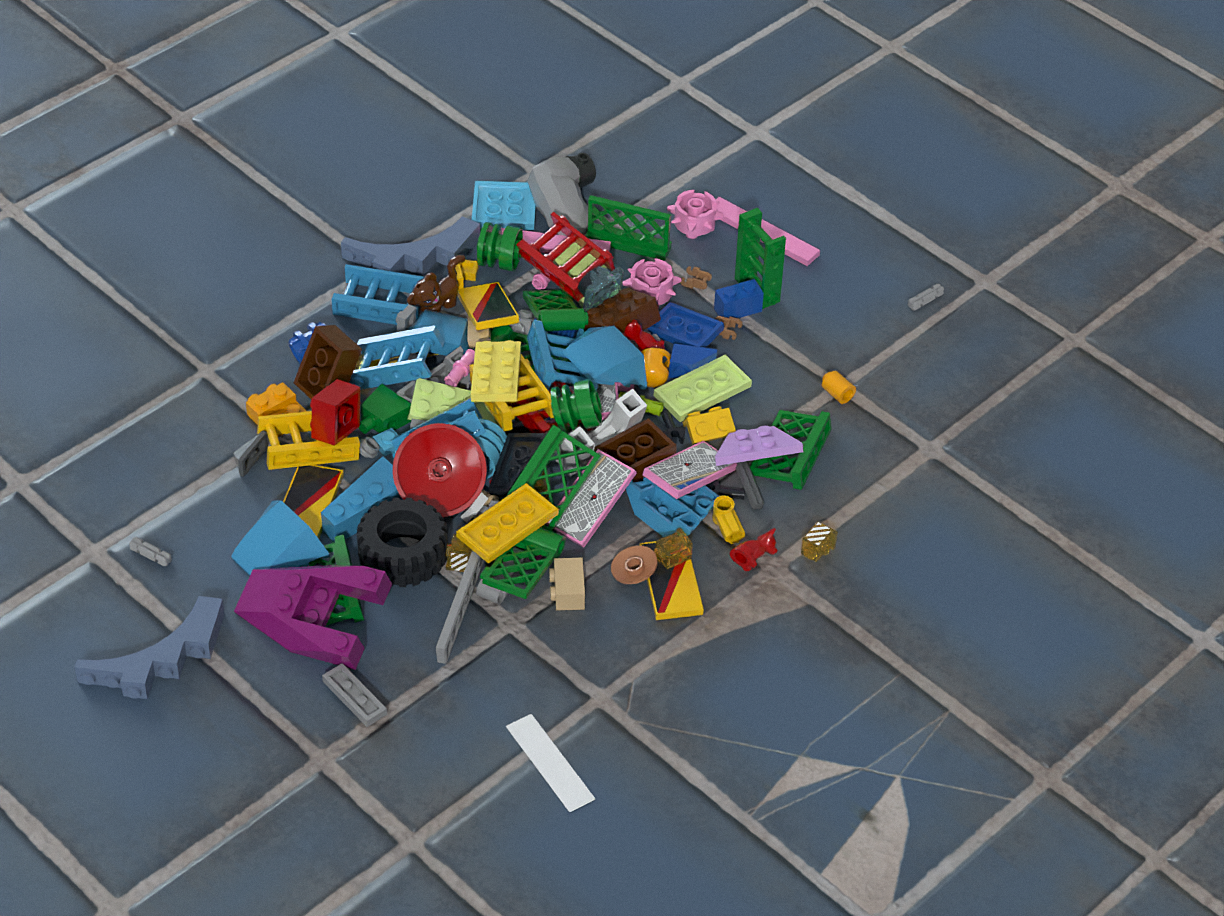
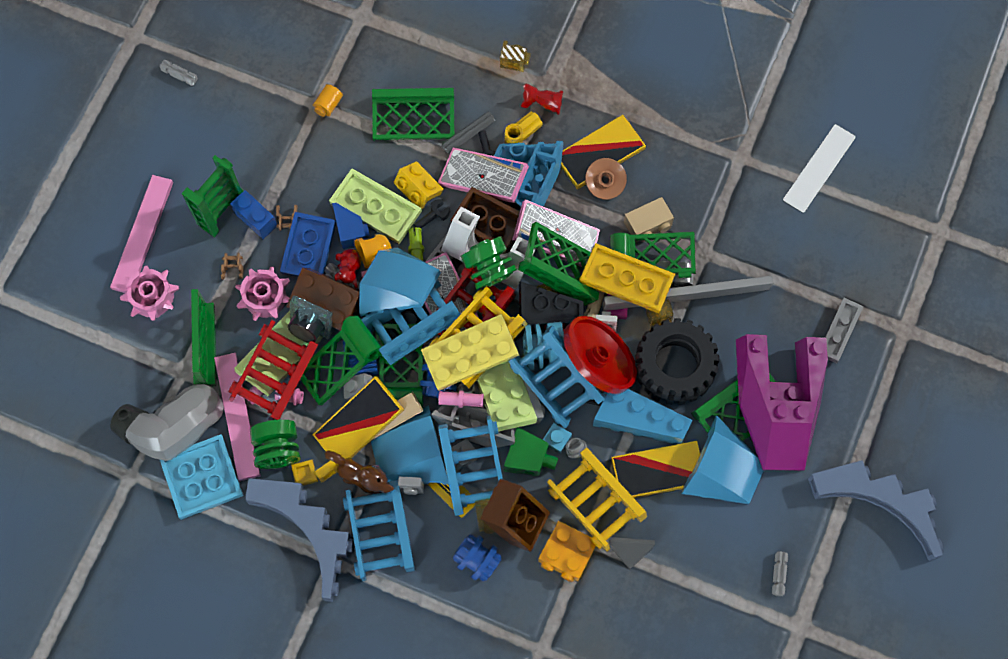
camera: 110 degrees left, 25 degrees up
(335, 412) = (578, 471): red brick -> none
(673, 549) = (580, 160): clear yellow brick -> none
(756, 444) = (431, 135): lavender wing -> none

